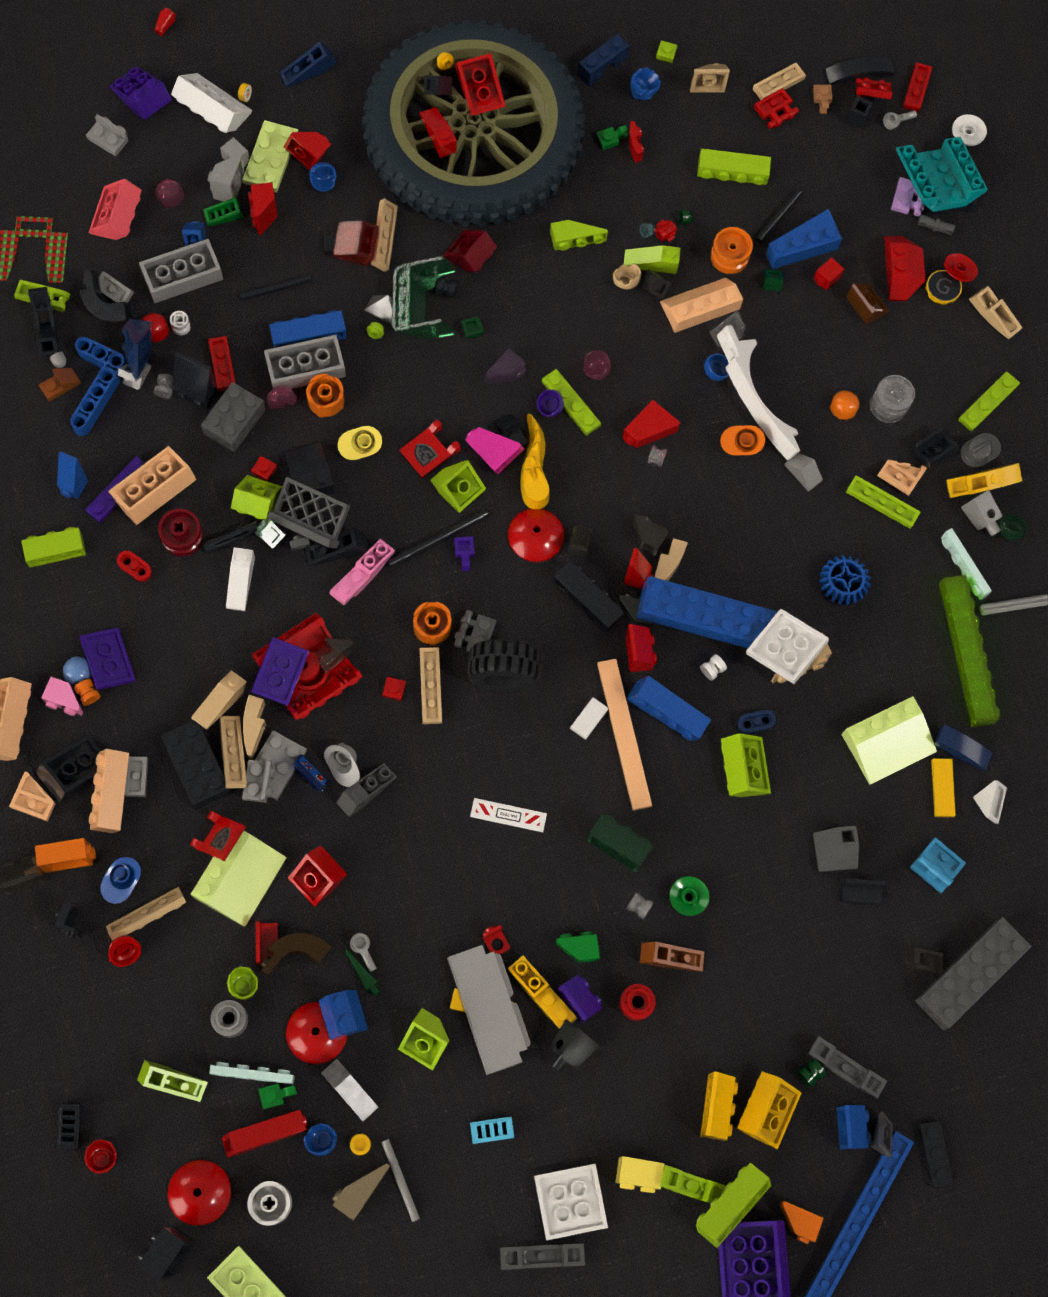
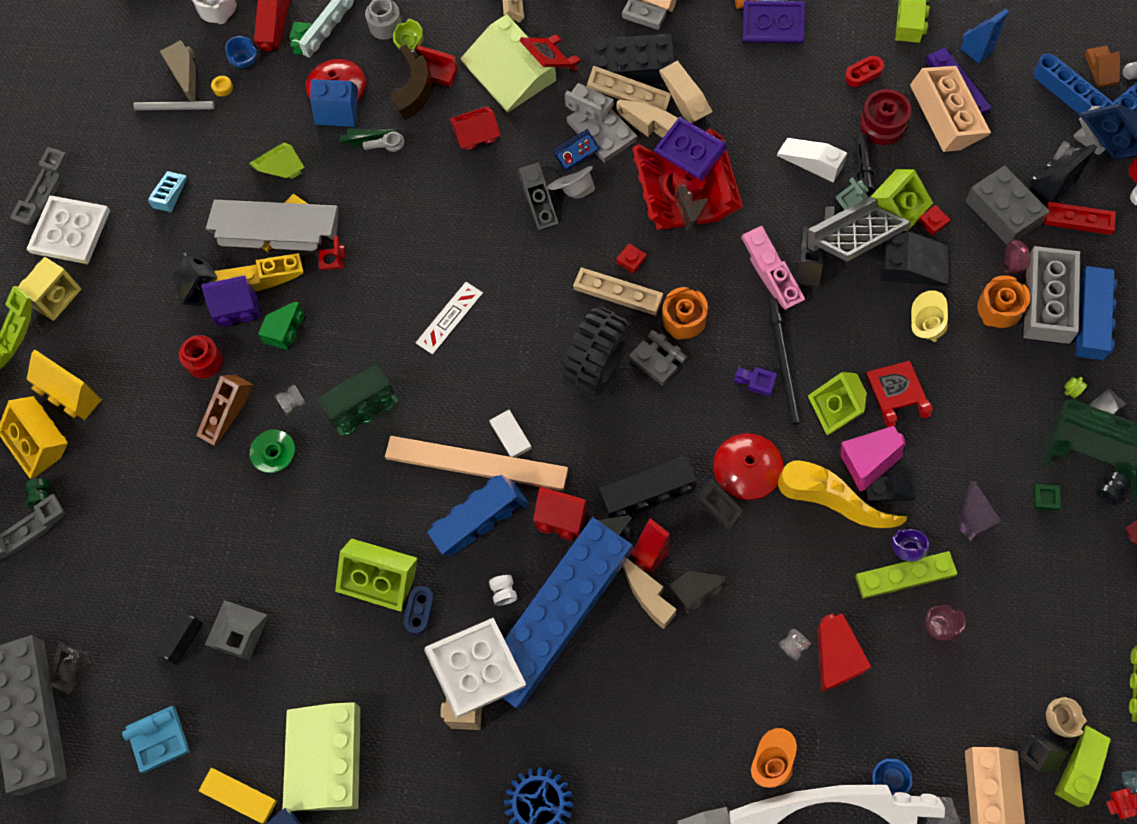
camera: 130 degrees right, 5 degrees down
(349, 1090) = (272, 88): slope -> none

